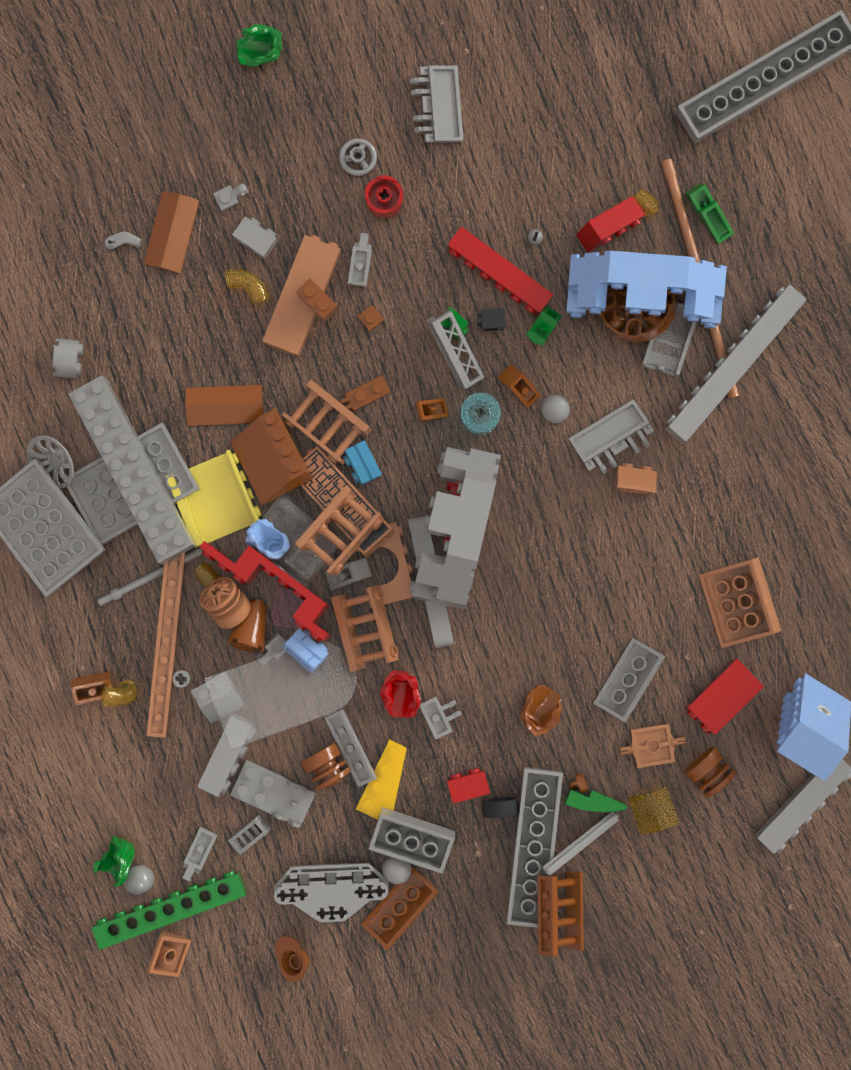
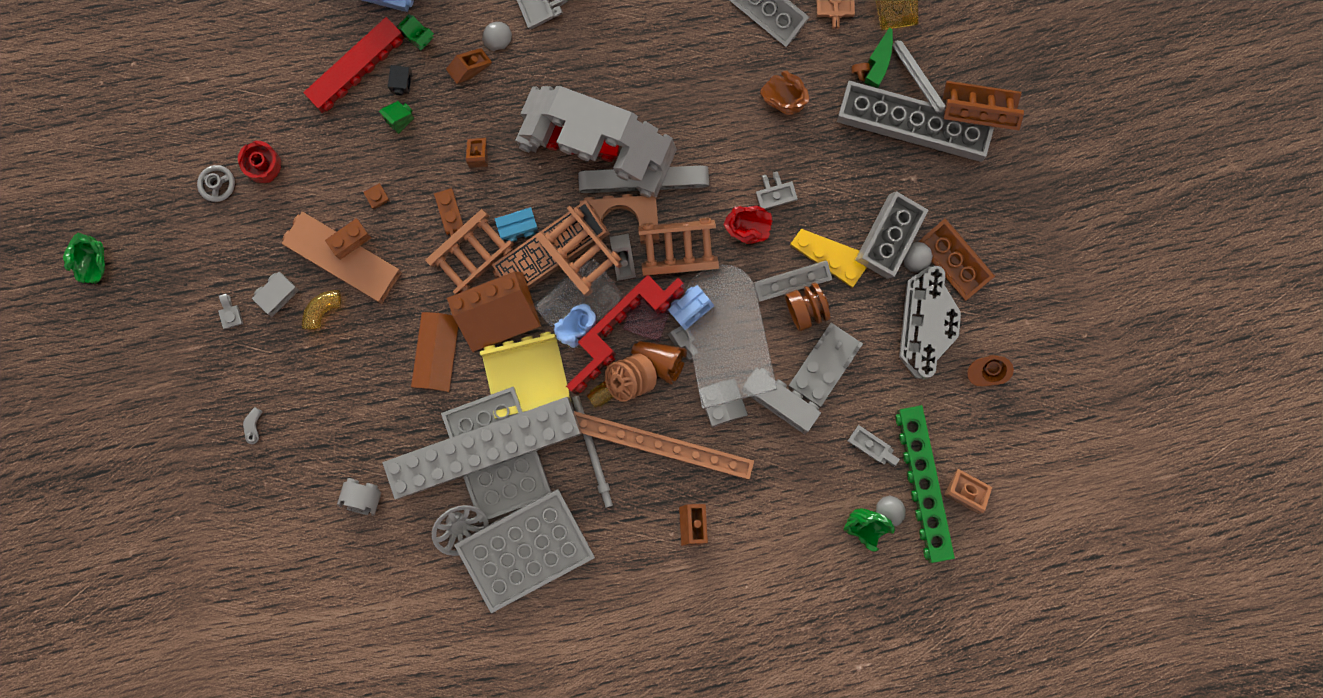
camera: 75 degrees left, 5 degrees down
(119, 696) = (705, 497): clear yellow cylinder -> none
(171, 232) = (253, 376): dark orange slope -> none
(185, 674) = (702, 441): light grey bush -> none
(263, 826) = (868, 391): light grey slope -> none
(360, 262) = (319, 196): light grey hinge -> none
(440, 100) = (177, 93): light grey hinge -> none
(448, 352) = (425, 120): light grey fence -> none
(468, 785) = (847, 175): red brick -> none
(470, 419) = (493, 113): clear light blue wheel -> none
(500, 807) = (872, 147): black tyre -> none
(539, 238) = (326, 32): light grey hinge -> none

